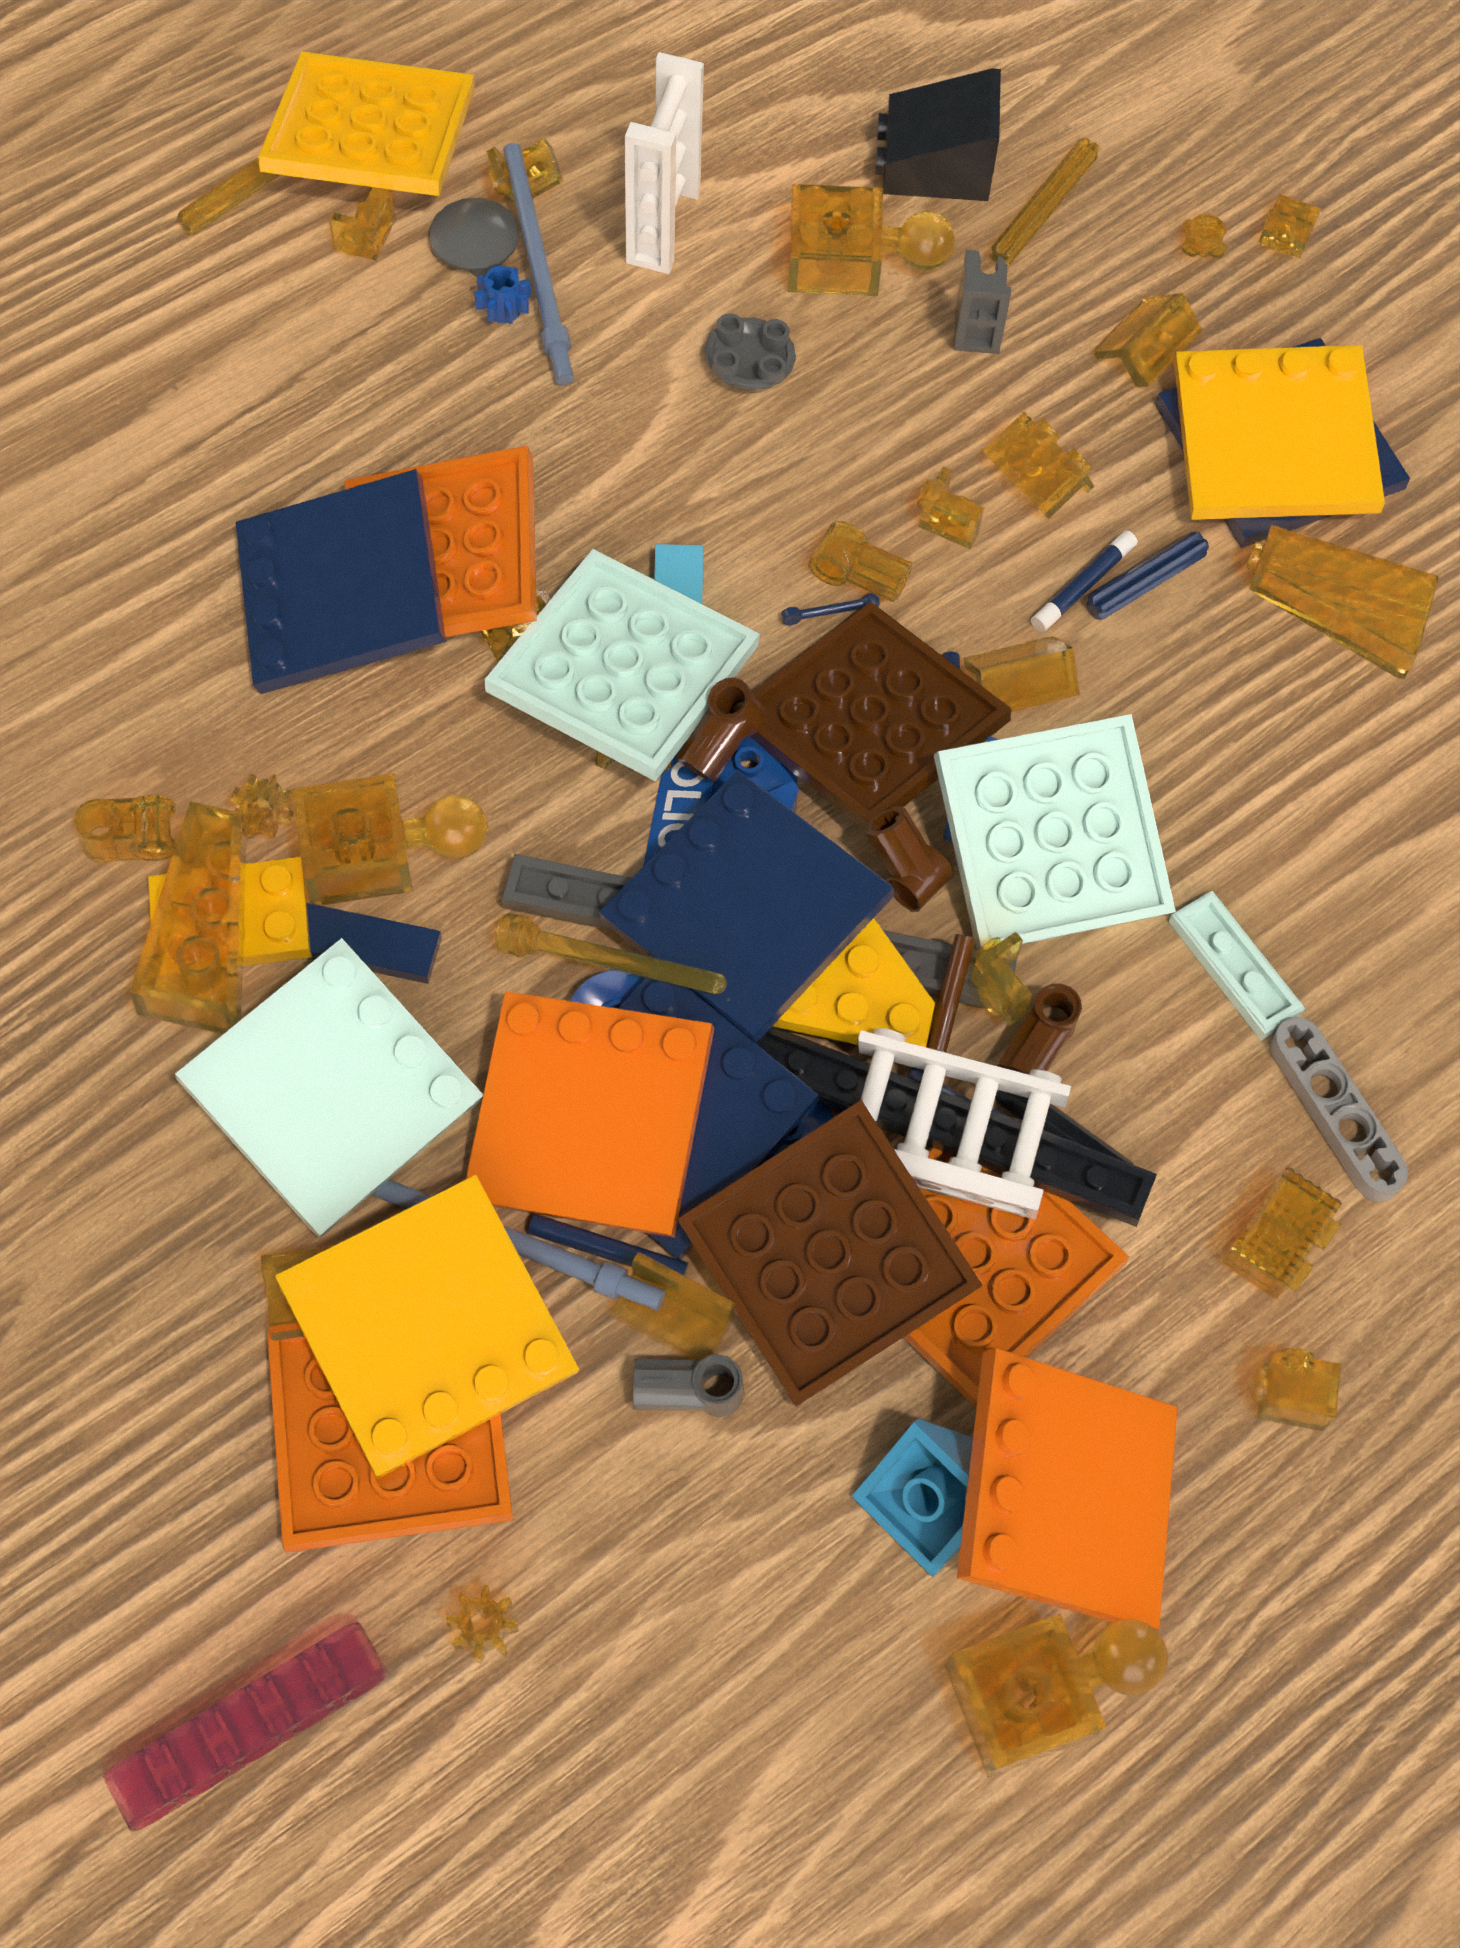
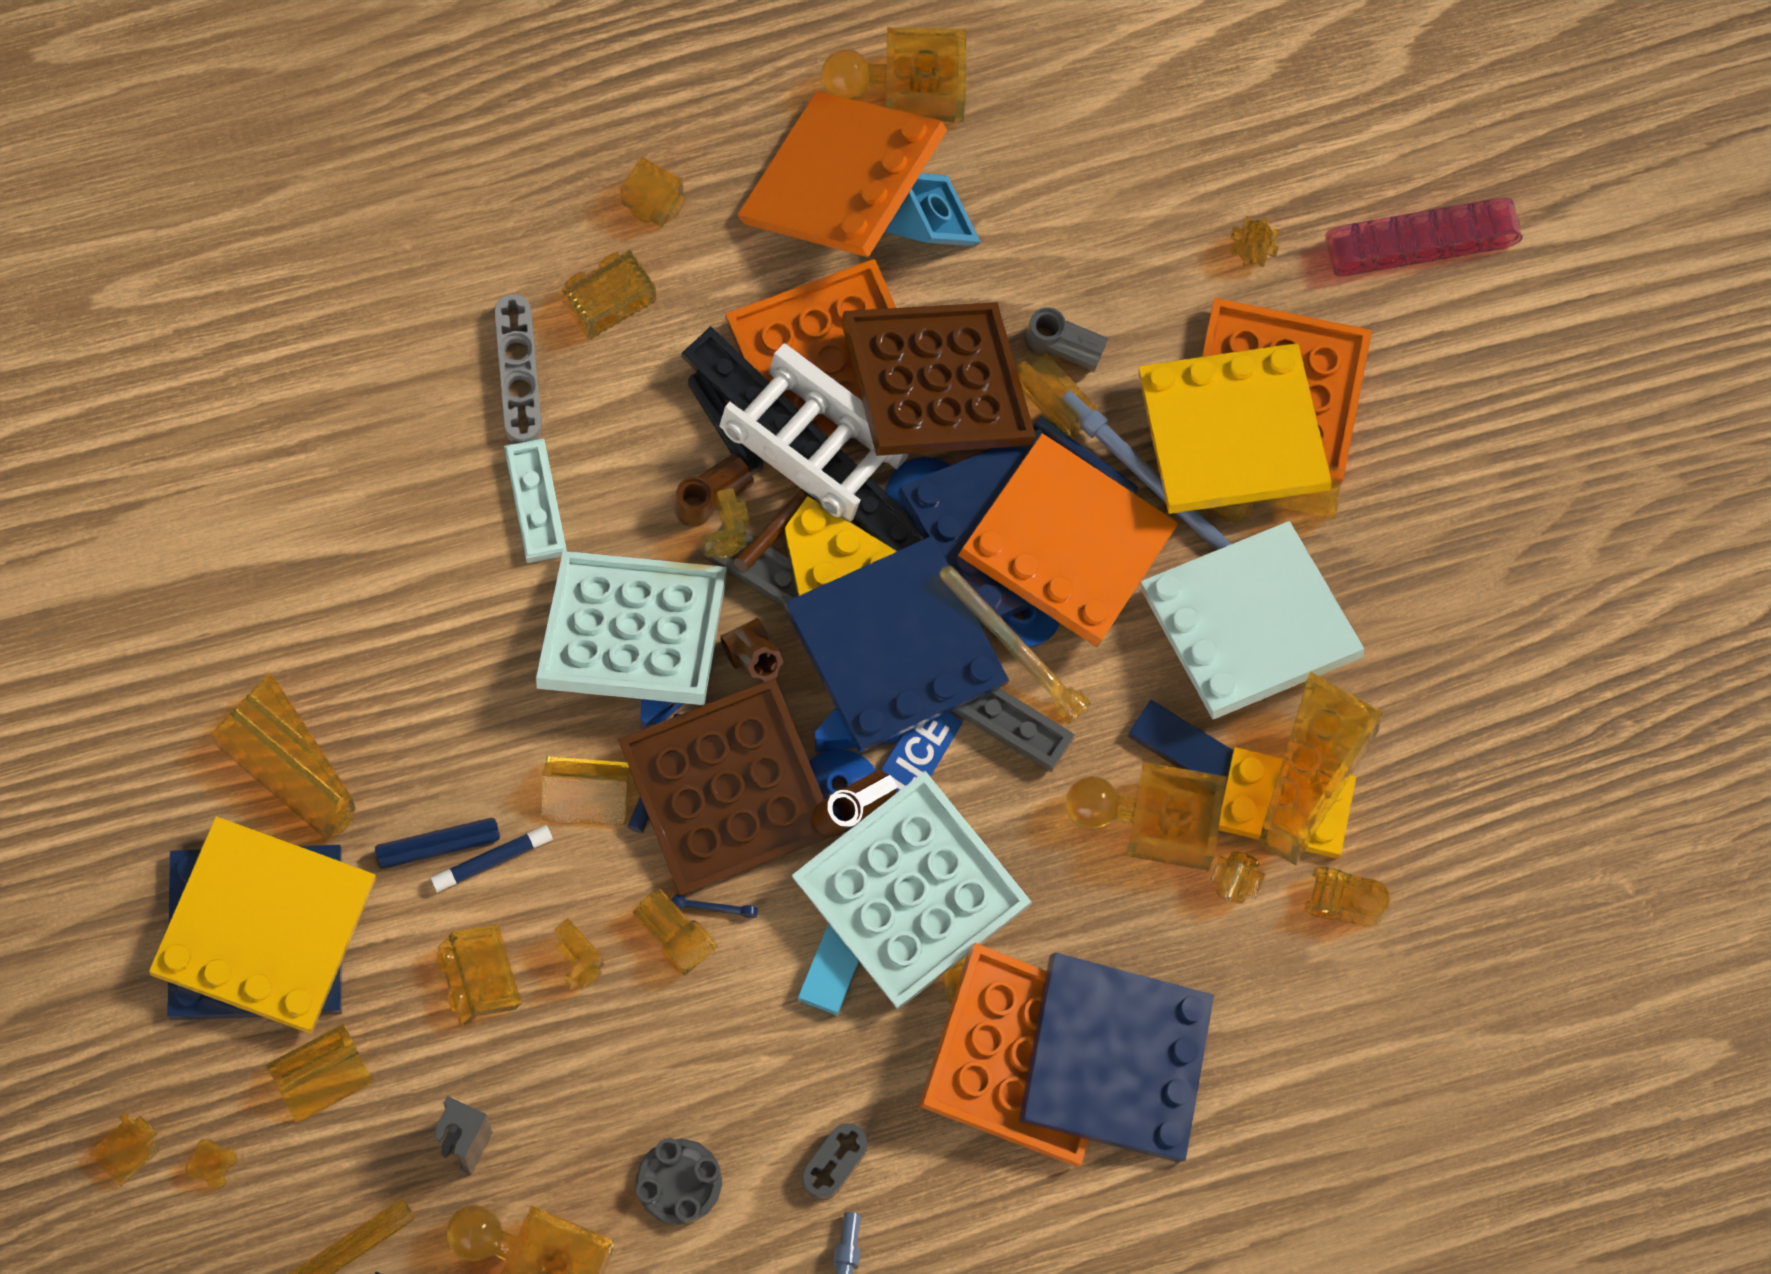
camera: 160 degrees left, 5 degrees up
(610, 420) = (843, 1167): none -> dark grey beam

